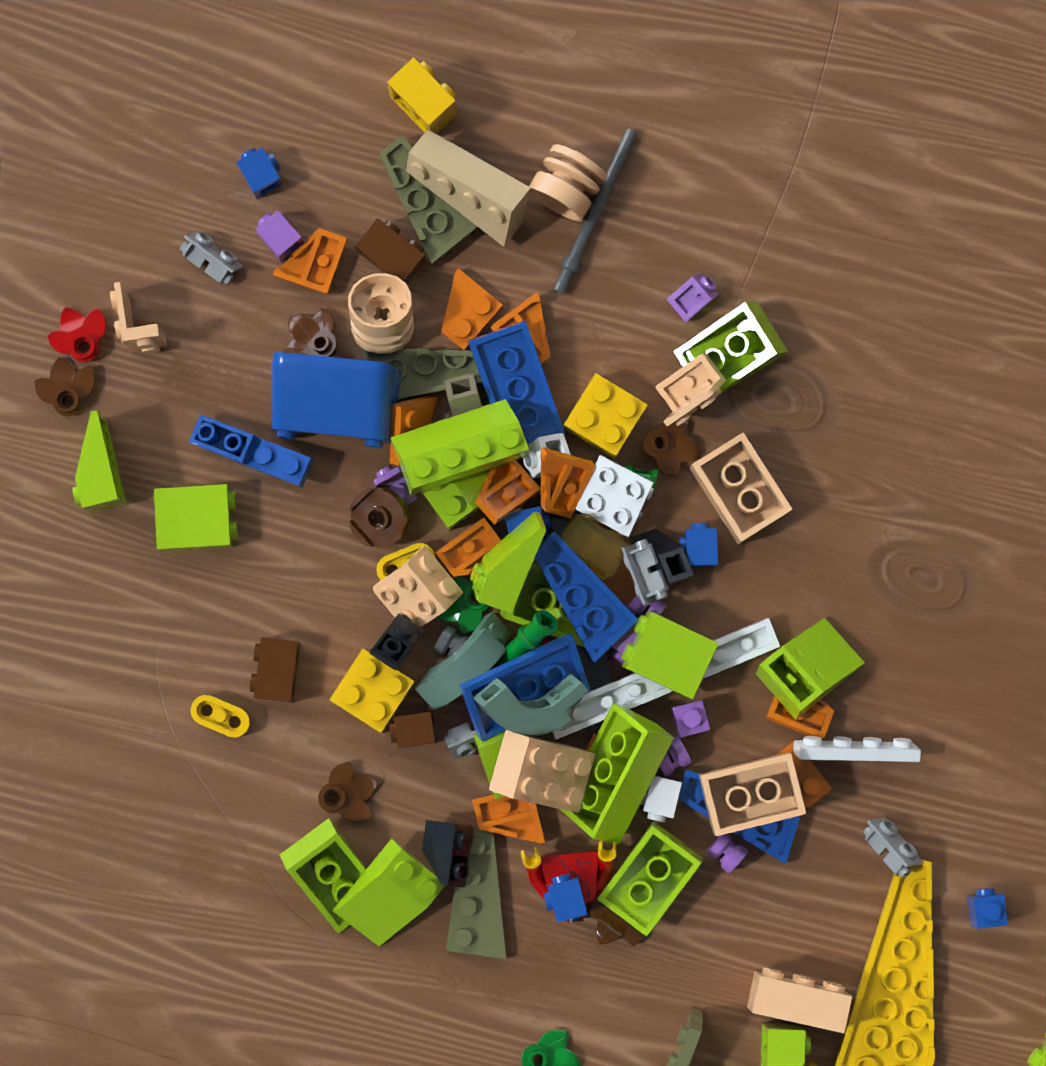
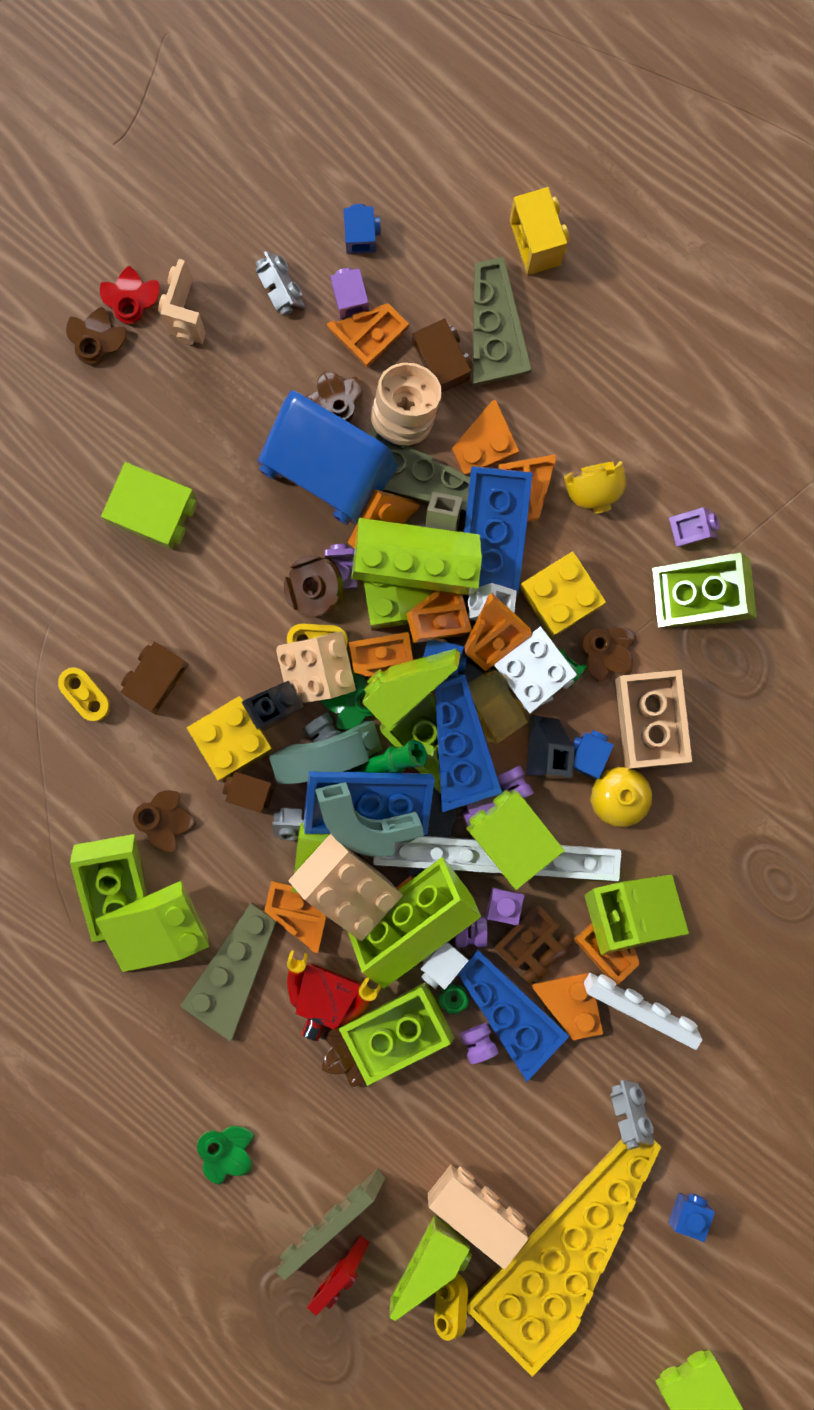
camera: 25 degrees right, 0 degrees up
(97, 471) = (84, 418): lime slope -> none
(251, 451) = (229, 471): blue slope -> none
(448, 851) = (226, 917): black slope -> none
(470, 186) = (542, 329): tan wedge -> none
(565, 898) = (309, 1014): blue brick -> none
(570, 177) = (631, 368): light nougat wheel -> none
(571, 263) = (598, 444): dark grey bar -> none
(588, 302) = (597, 486): none -> yellow cylinder
(648, 585) = (526, 766): light grey hinge -> none
(685, 815) = (461, 1002): none -> green plate
(691, 387) = (653, 605): light nougat bracket -> none
(724, 734) = (527, 937): none -> reddish brown plate
(746, 570) = (621, 797): none -> yellow cylinder
(752, 794) = (528, 1004): light nougat brick -> none

